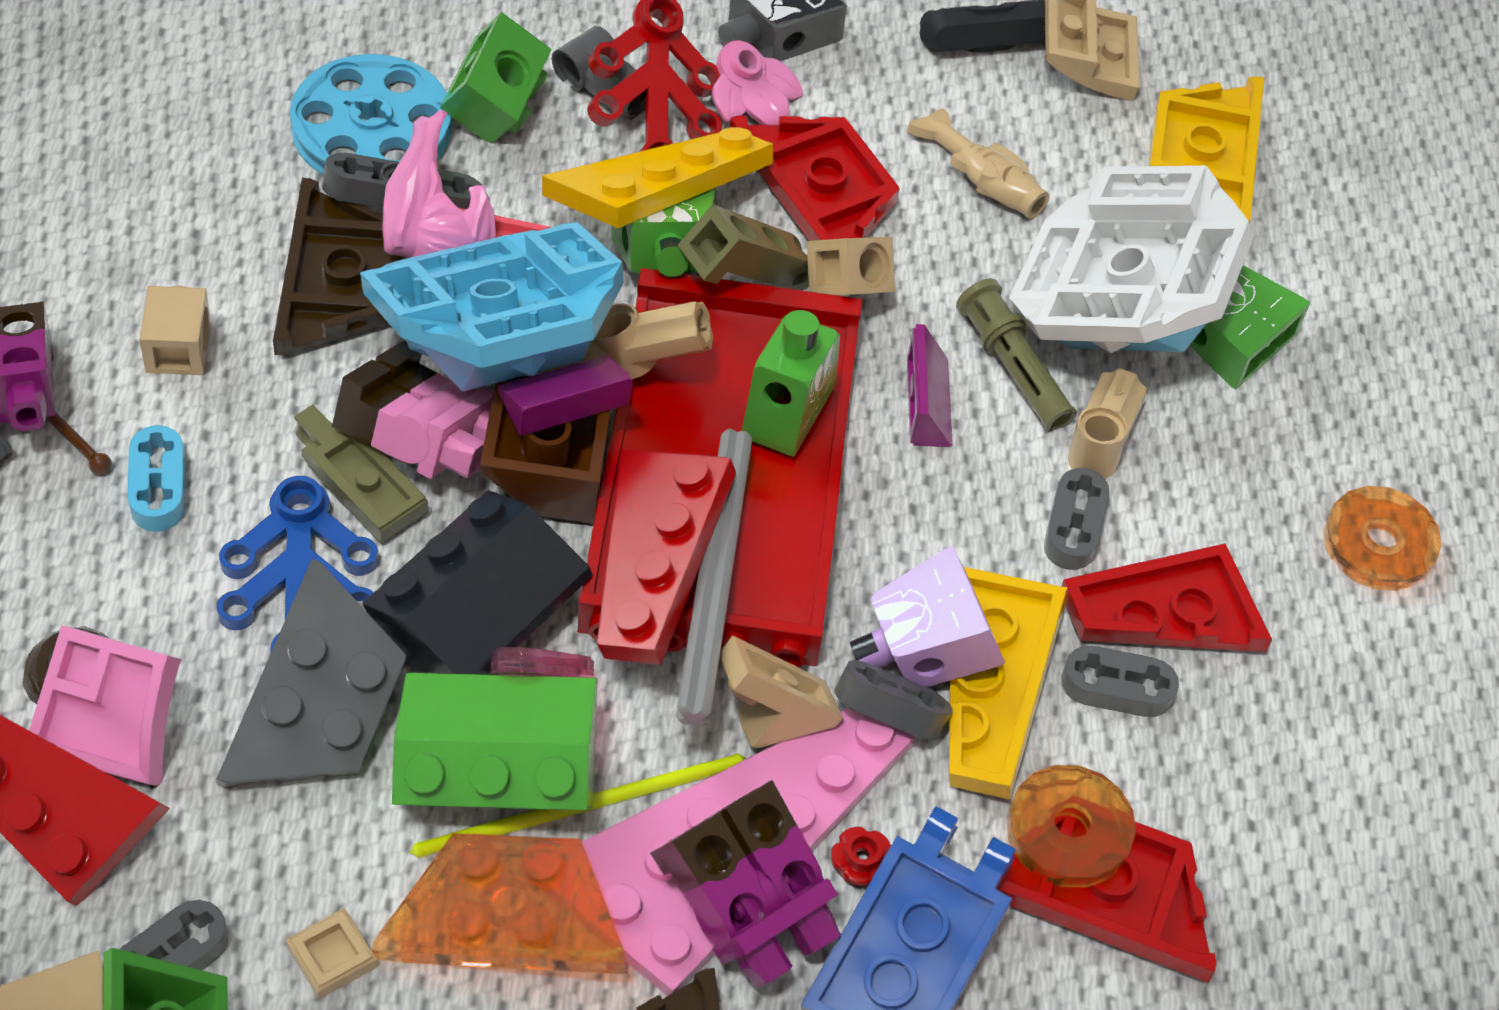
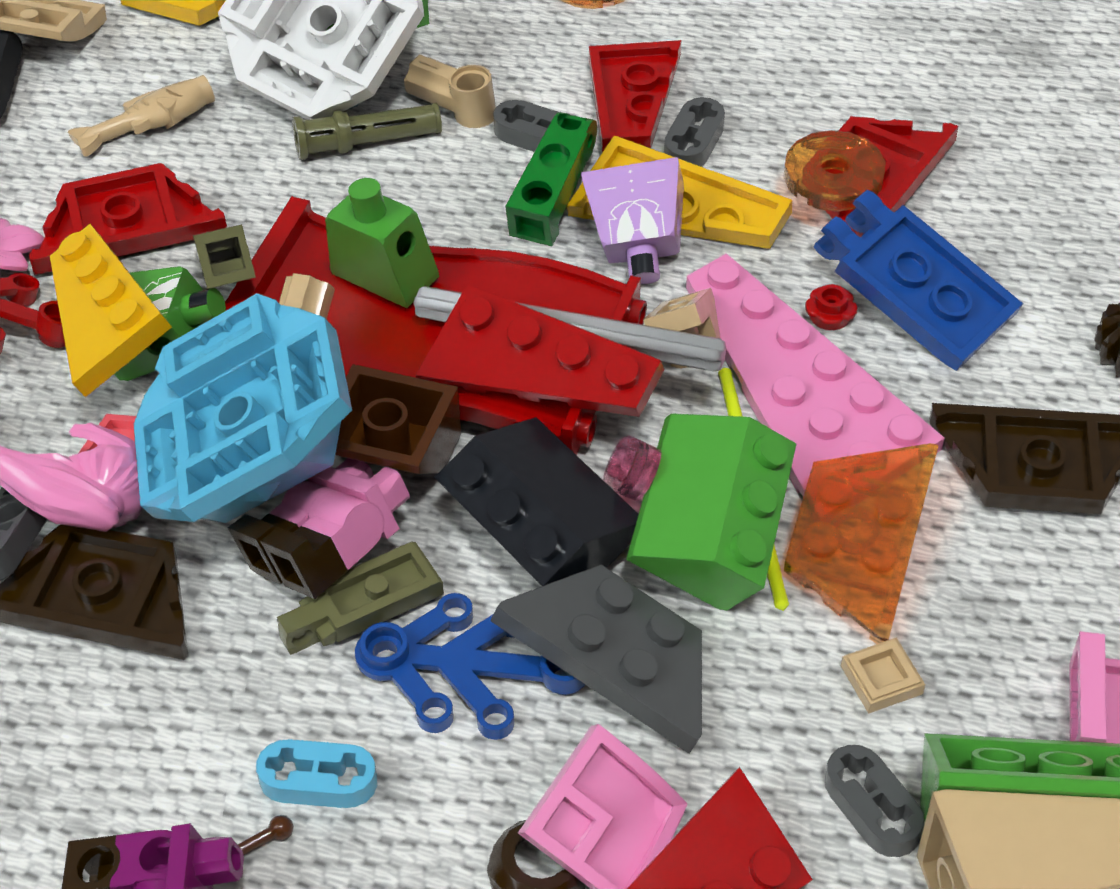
camera: 70 degrees left, 5 degrees down
(175, 330) = (133, 733): tan brick -> none
(566, 394) = (367, 389): magenta slope -> none
(750, 881) = (867, 353): magenta hips -> none
(851, 266) = (249, 200): tan brick -> none
(893, 700) = (700, 253): dark grey beam -> none
(928, 391) = (406, 188): magenta slope -> none
(981, 533) = (550, 179): none -> green leg

